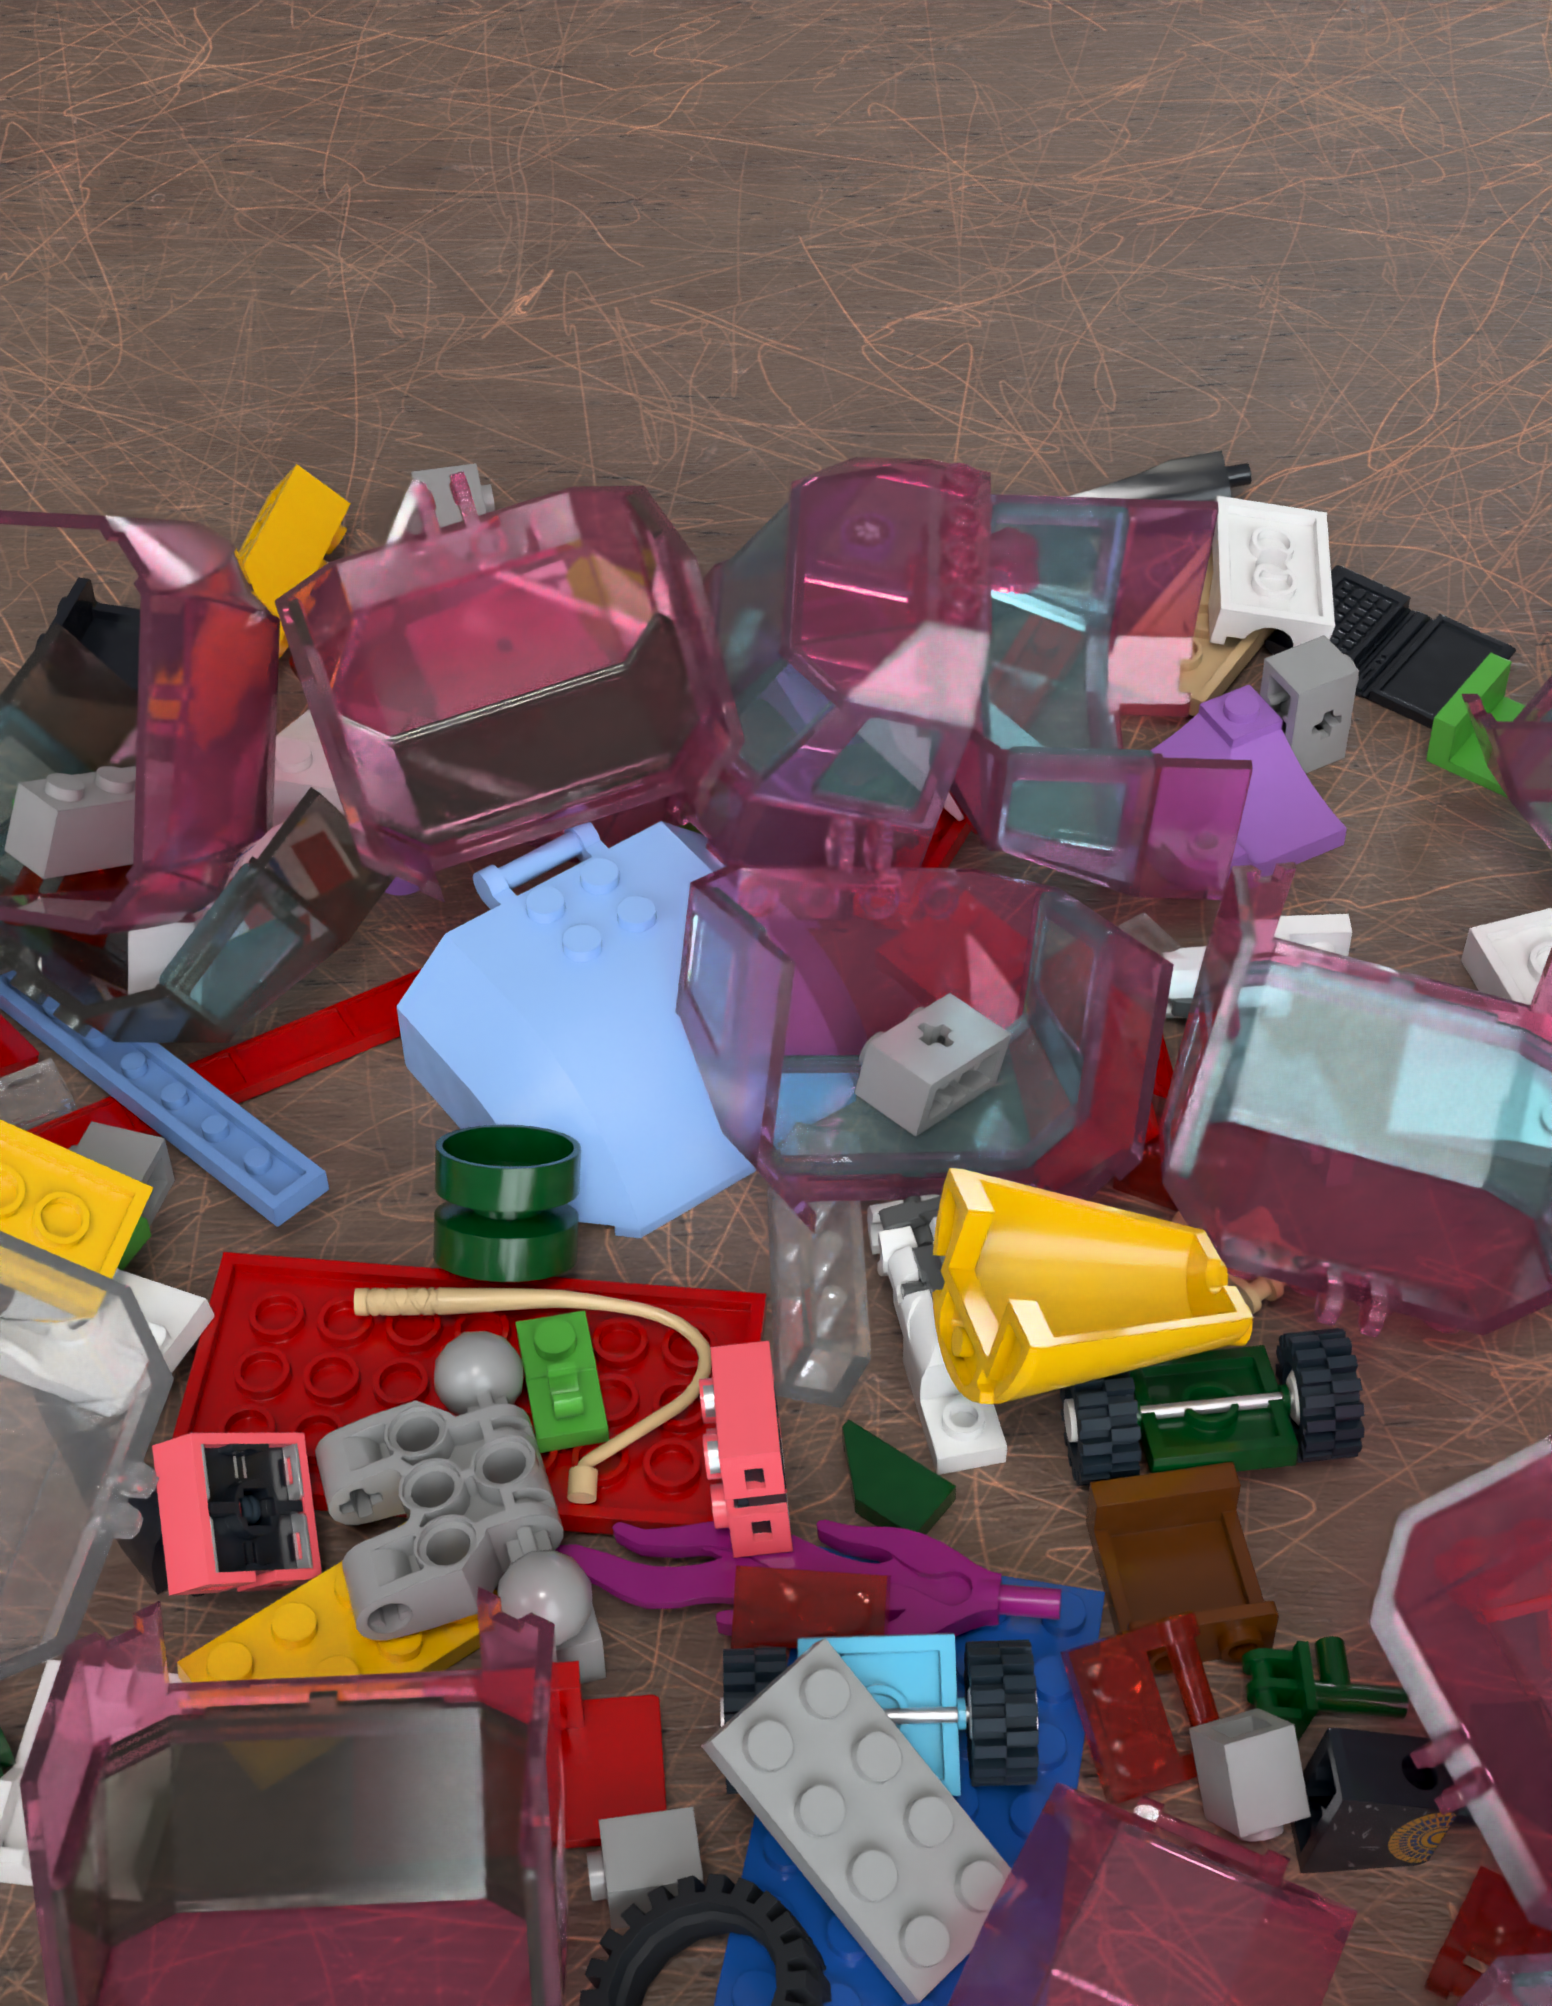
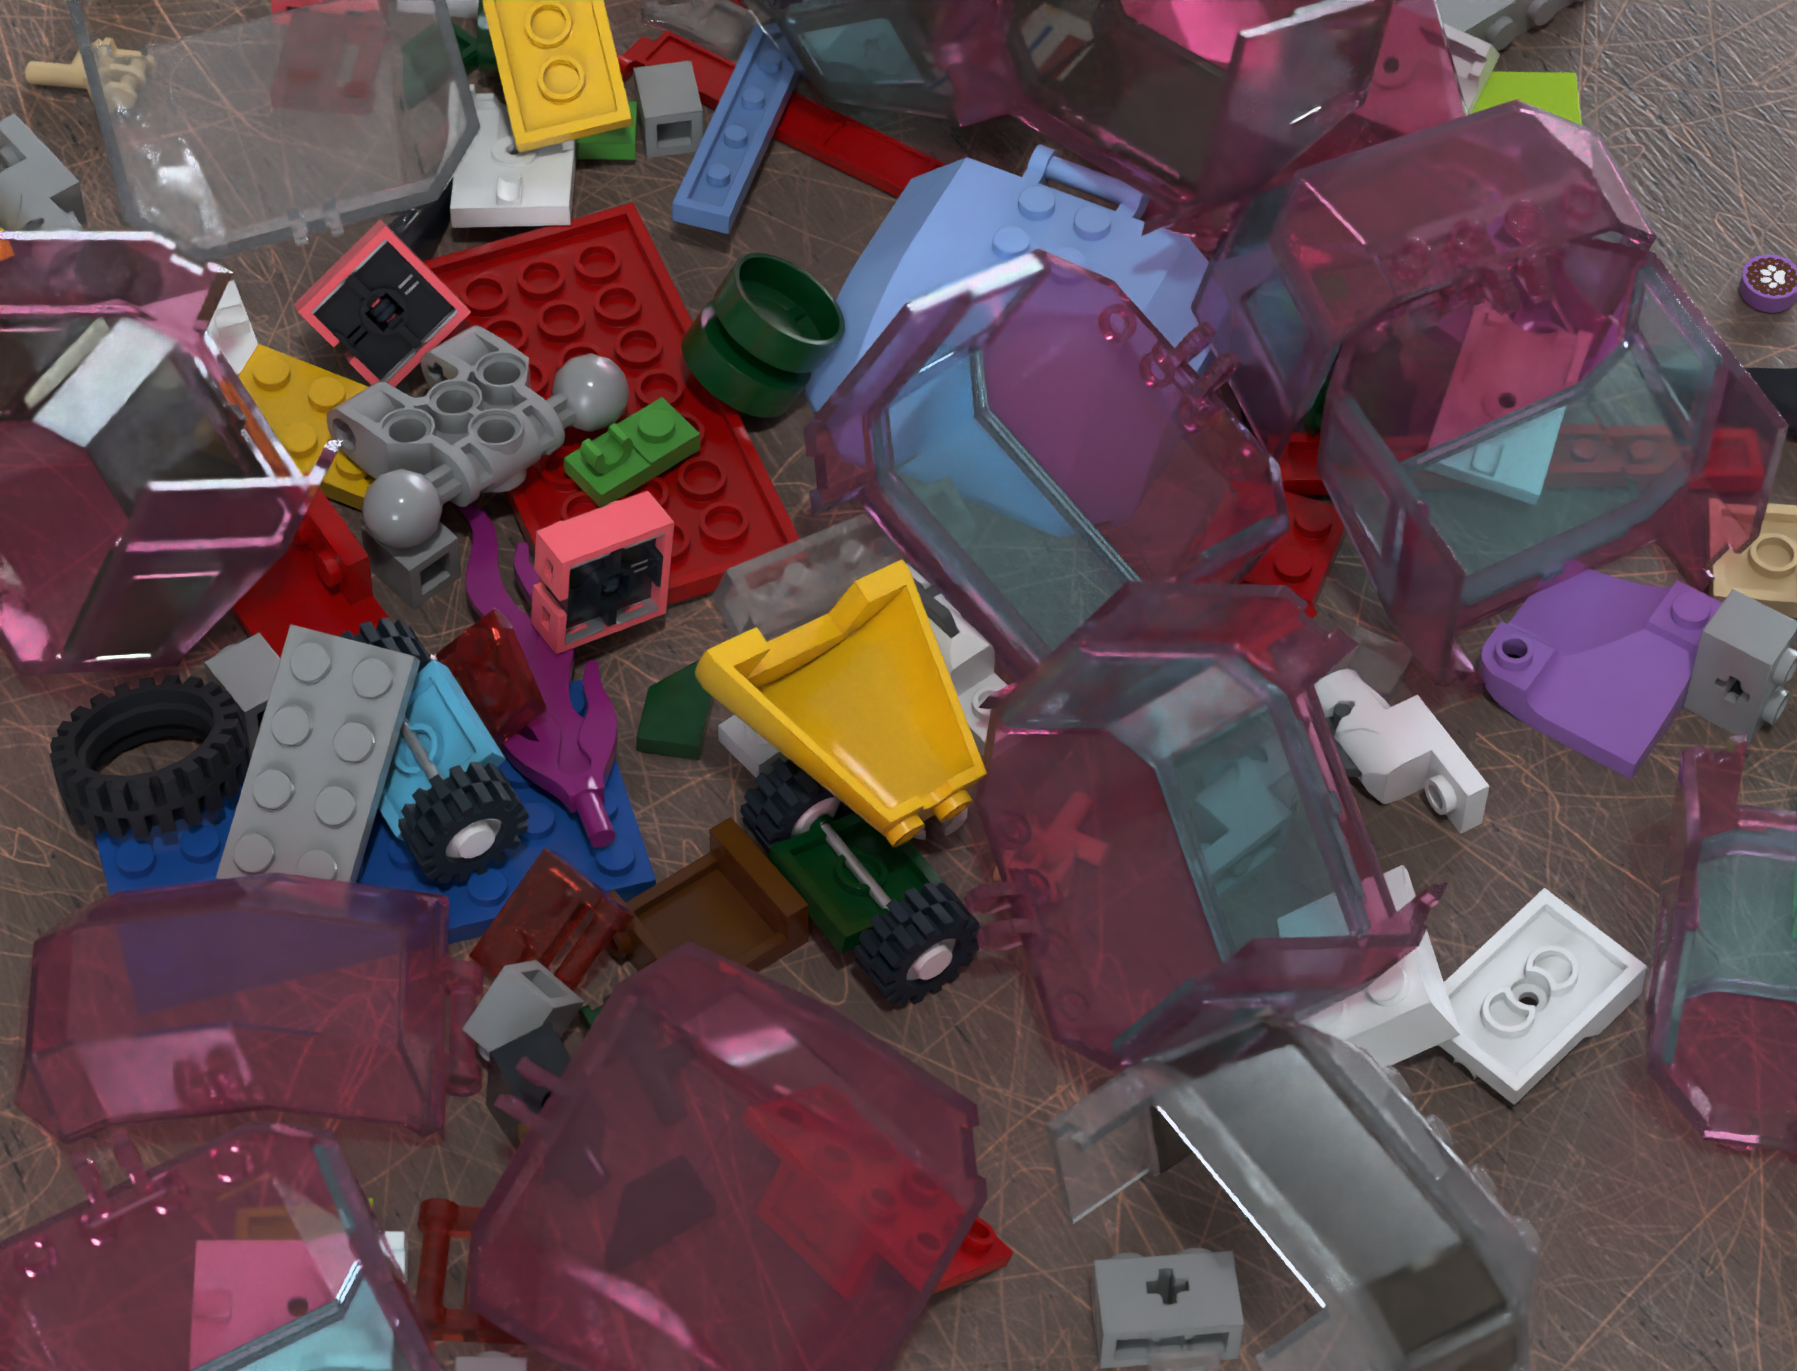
camera: 60 degrees right, 5 degrees up
(449, 1301) = (667, 359): tan piece -> none
(931, 1063) = (1071, 537): light grey brick -> none

